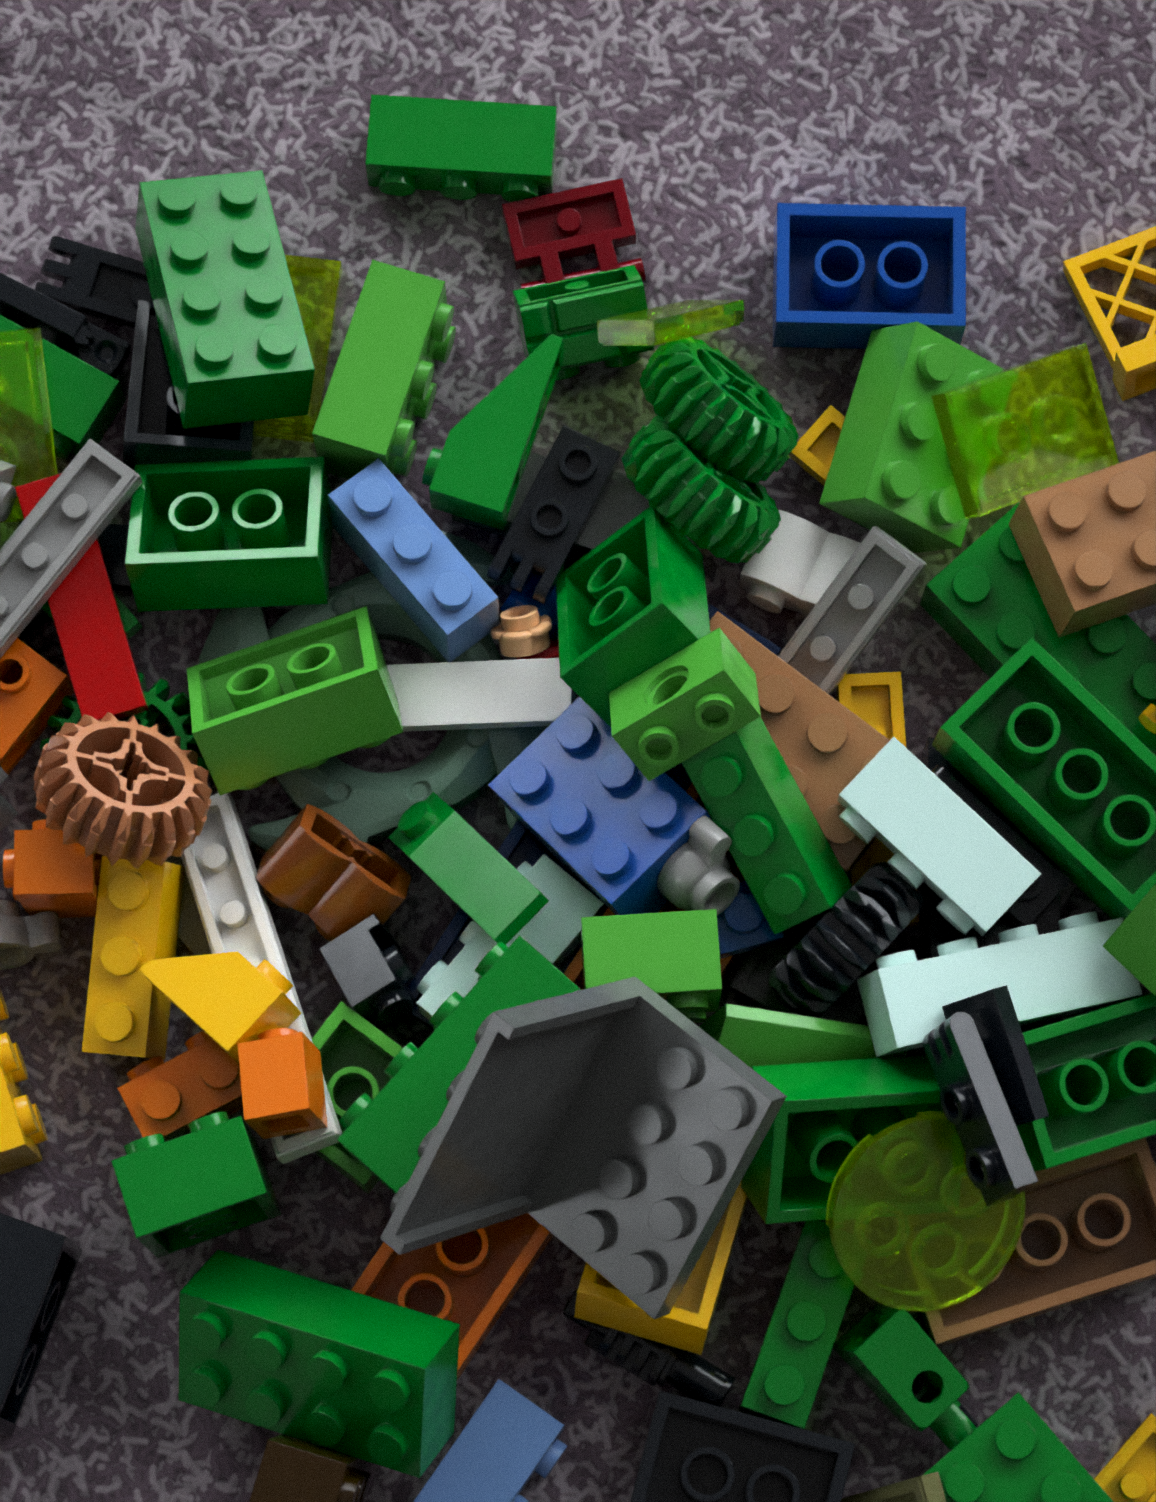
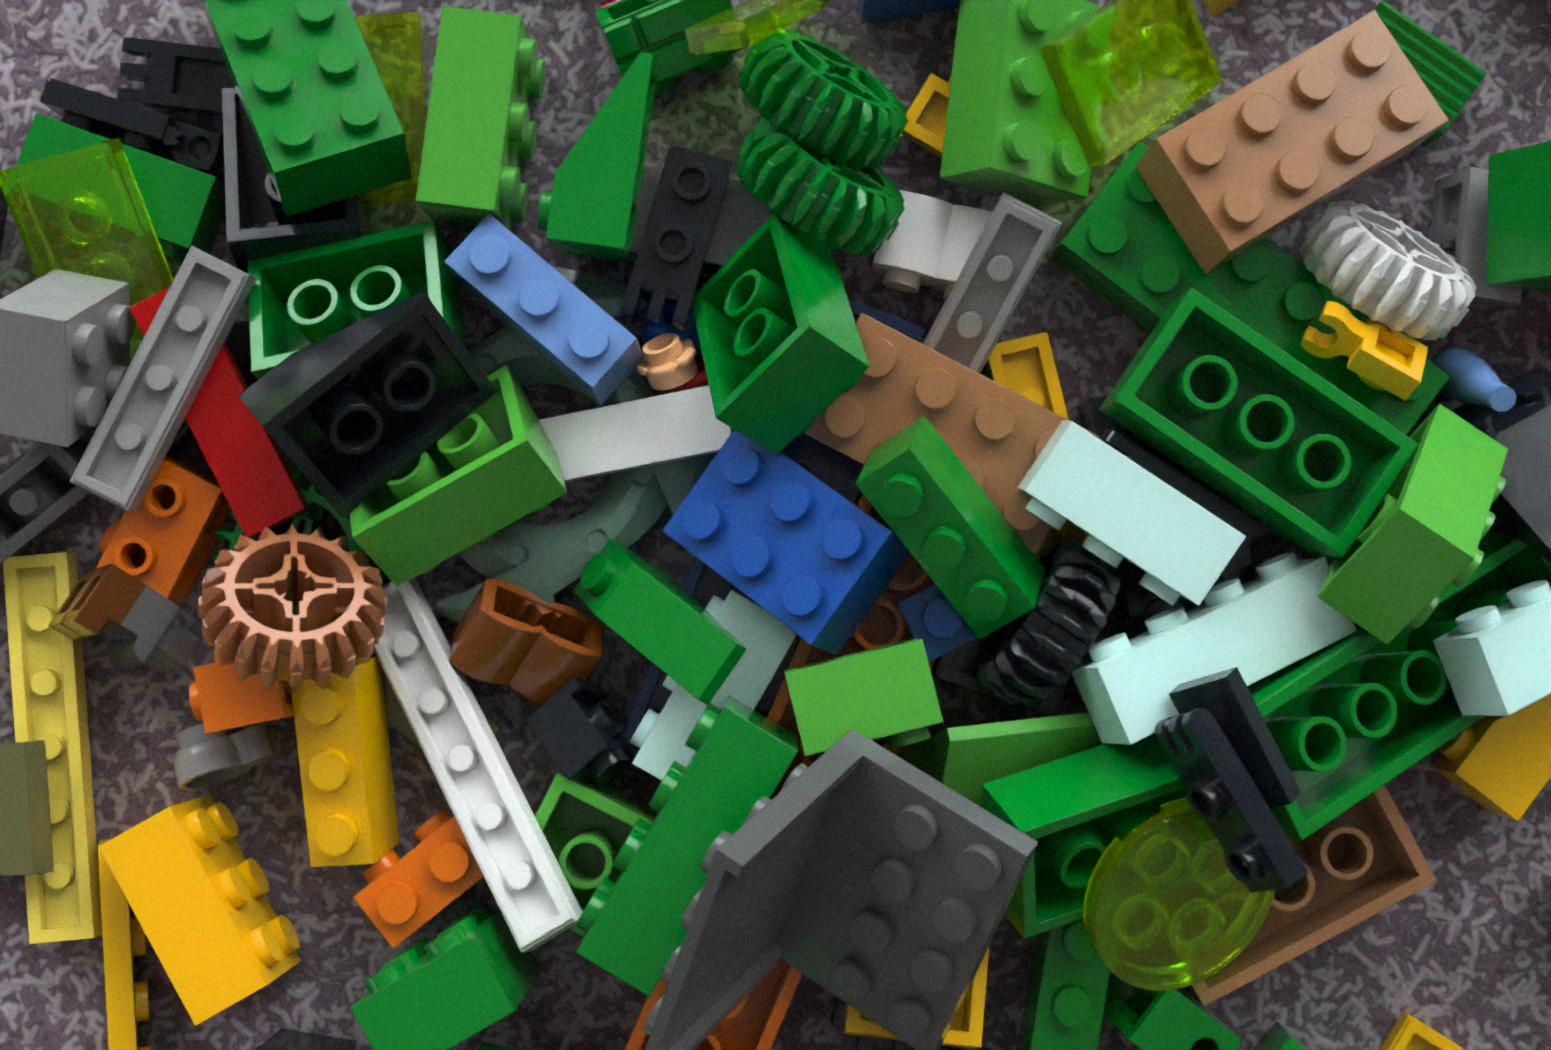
camera: 10 degrees left, 10 degrees up
(225, 995) = (441, 805): yellow slope -> none
(232, 609) = (369, 398): none -> black slope
(282, 1083) = (510, 883): orange brick -> none
(684, 704) = (850, 426): bright green brick -> none
(699, 871) = (894, 591): light grey piece -> none

